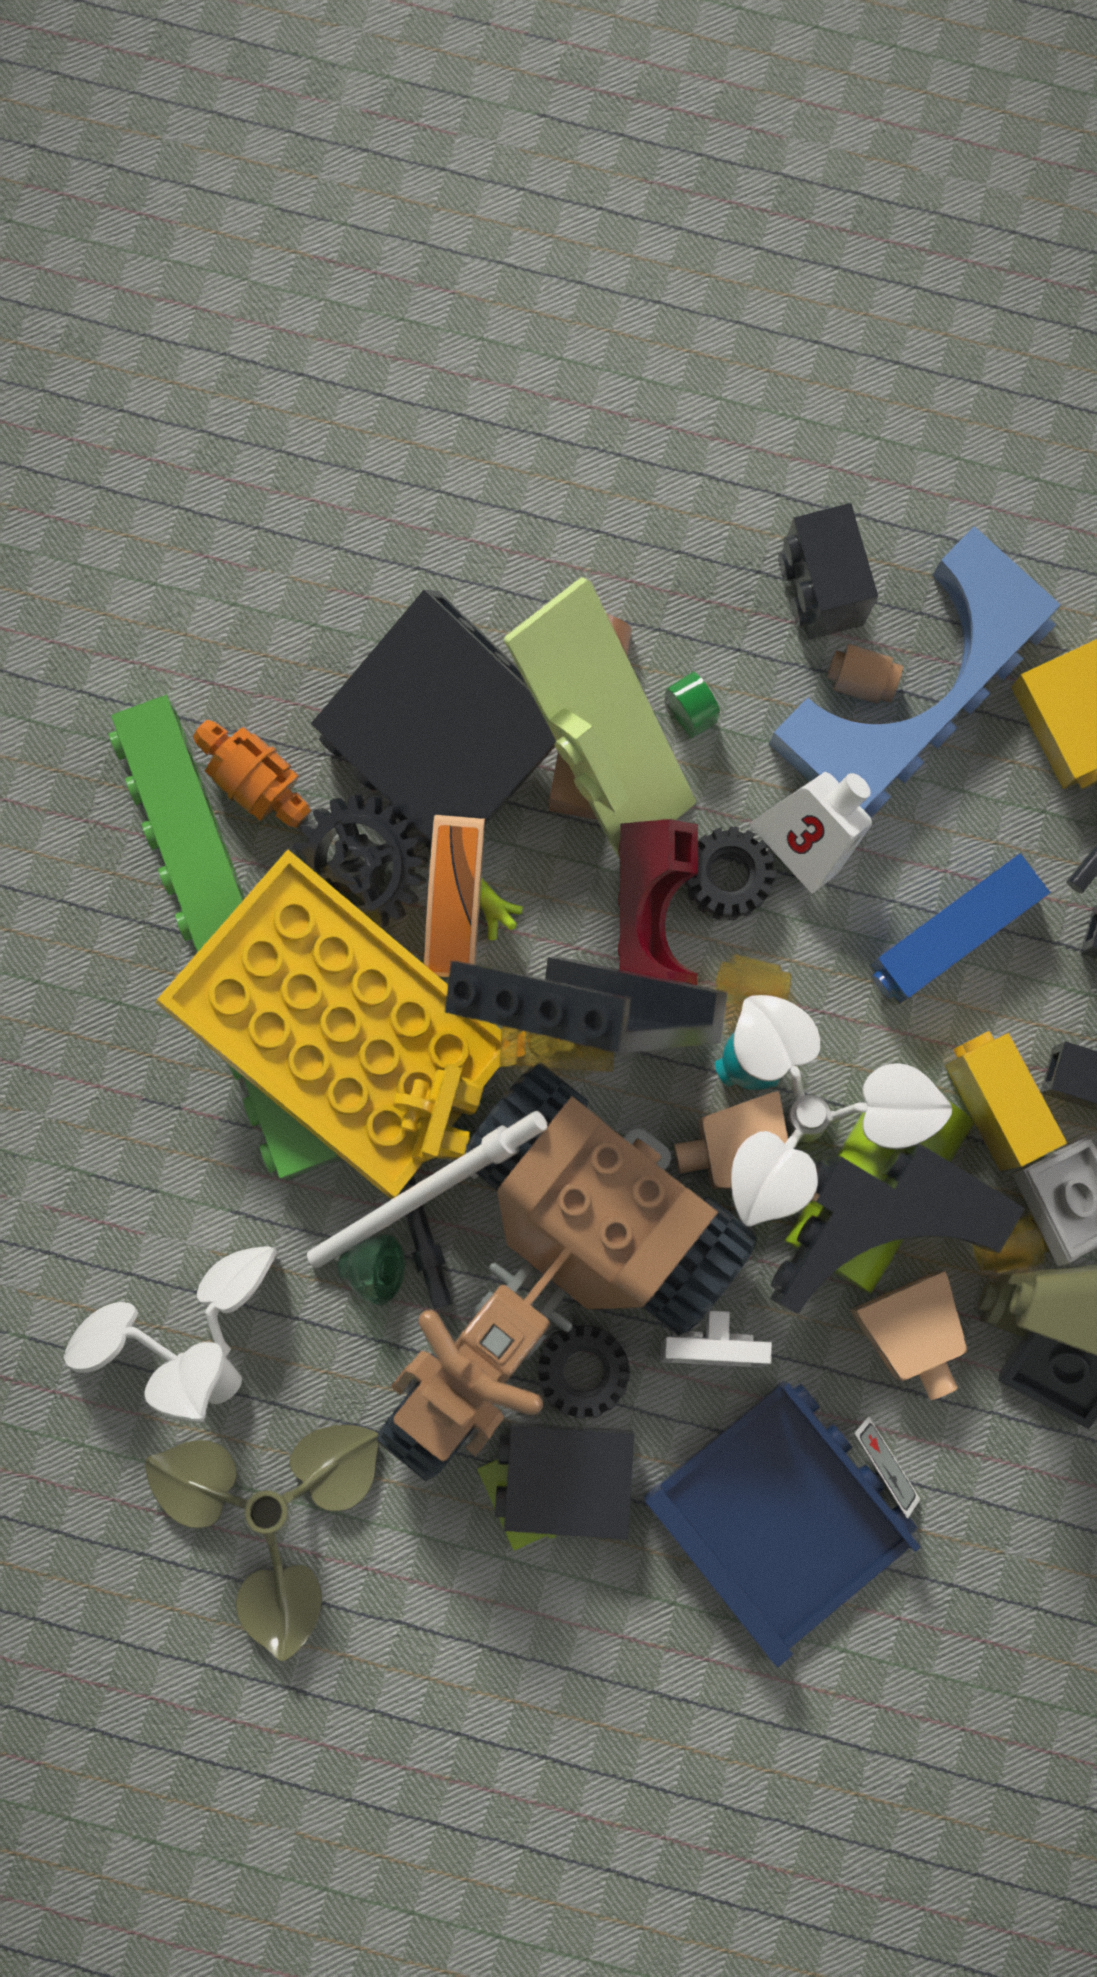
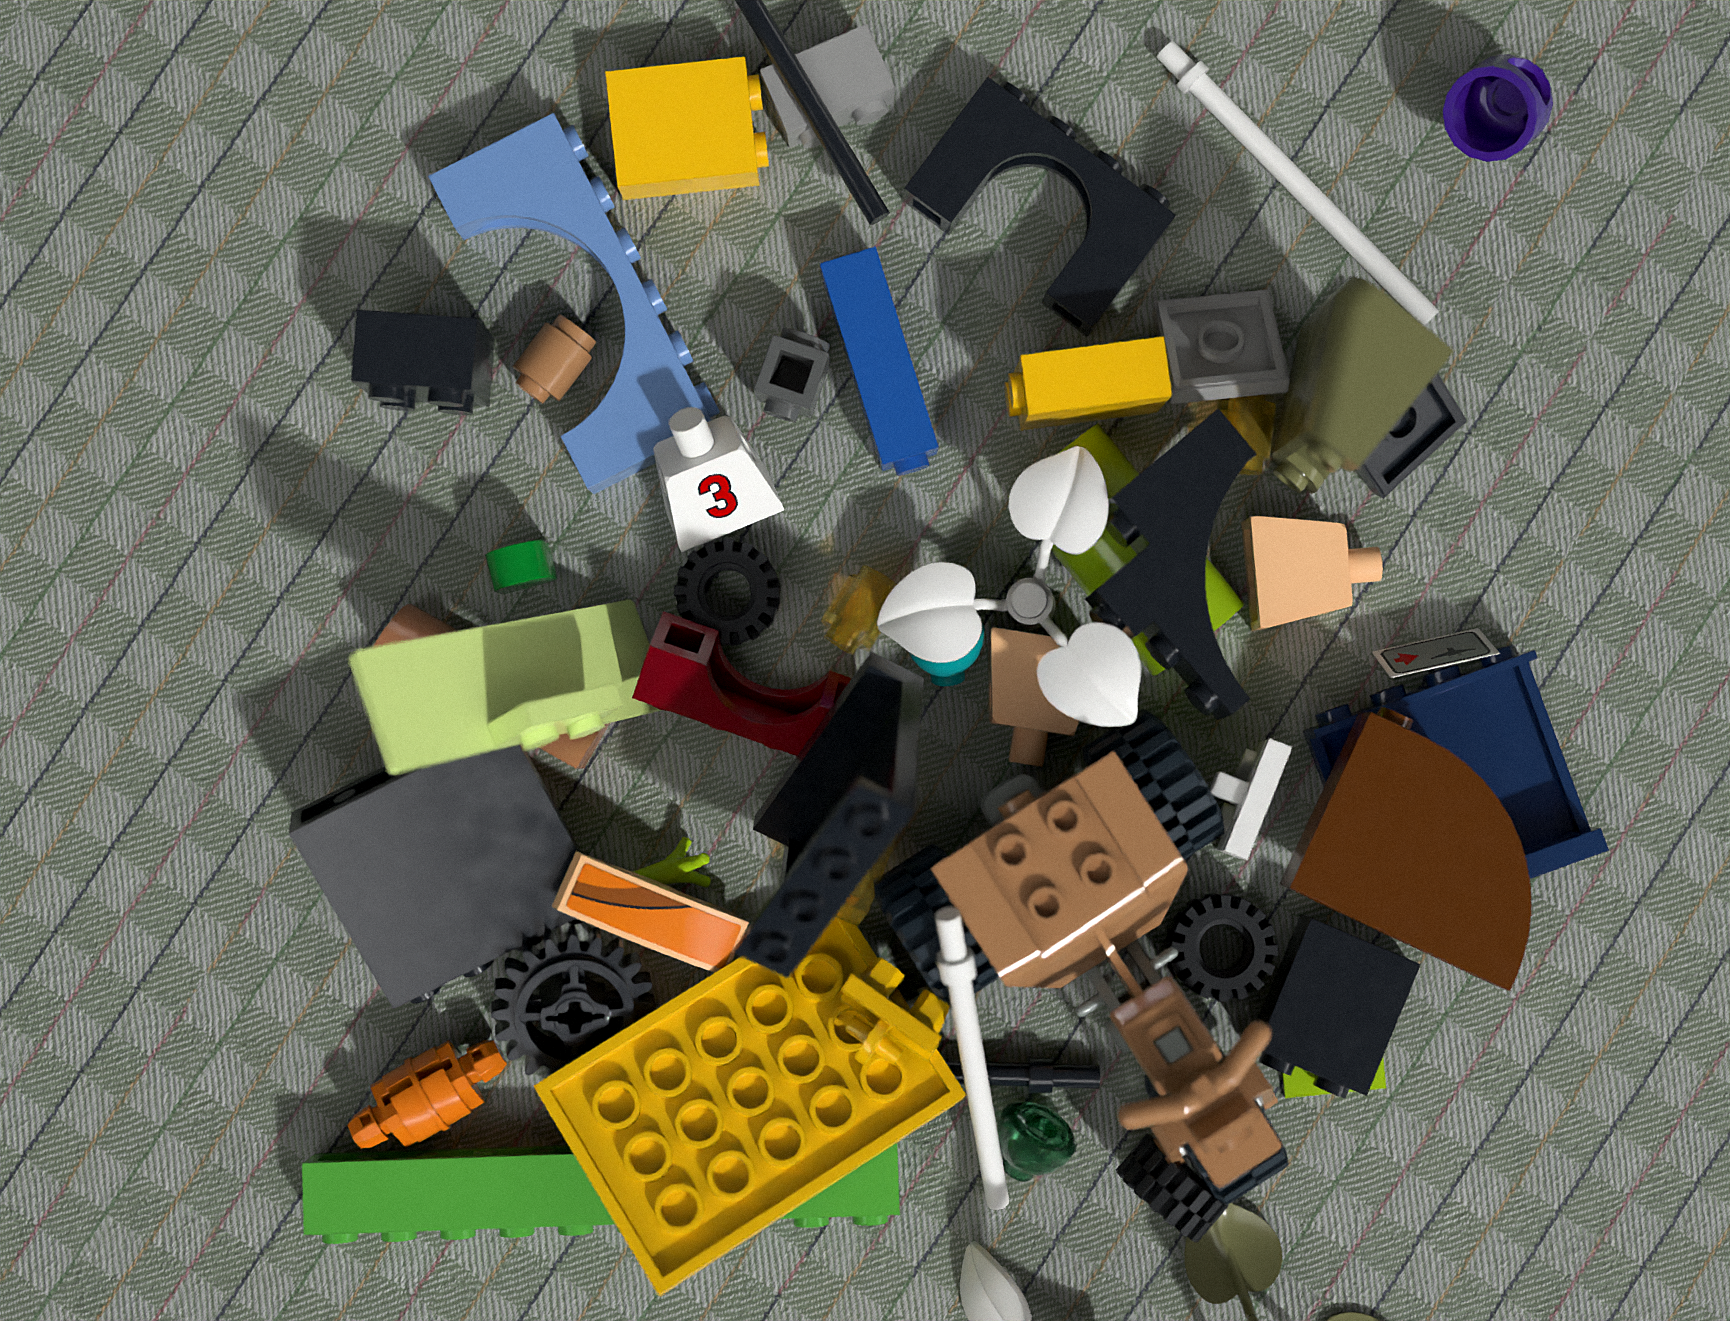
camera: 75 degrees left, 5 degrees up
(372, 1394) = (1171, 1189): none -> black tyre
(720, 1502) = (1417, 851): none -> reddish brown brick
(922, 863) = (792, 375): none -> dark grey brick

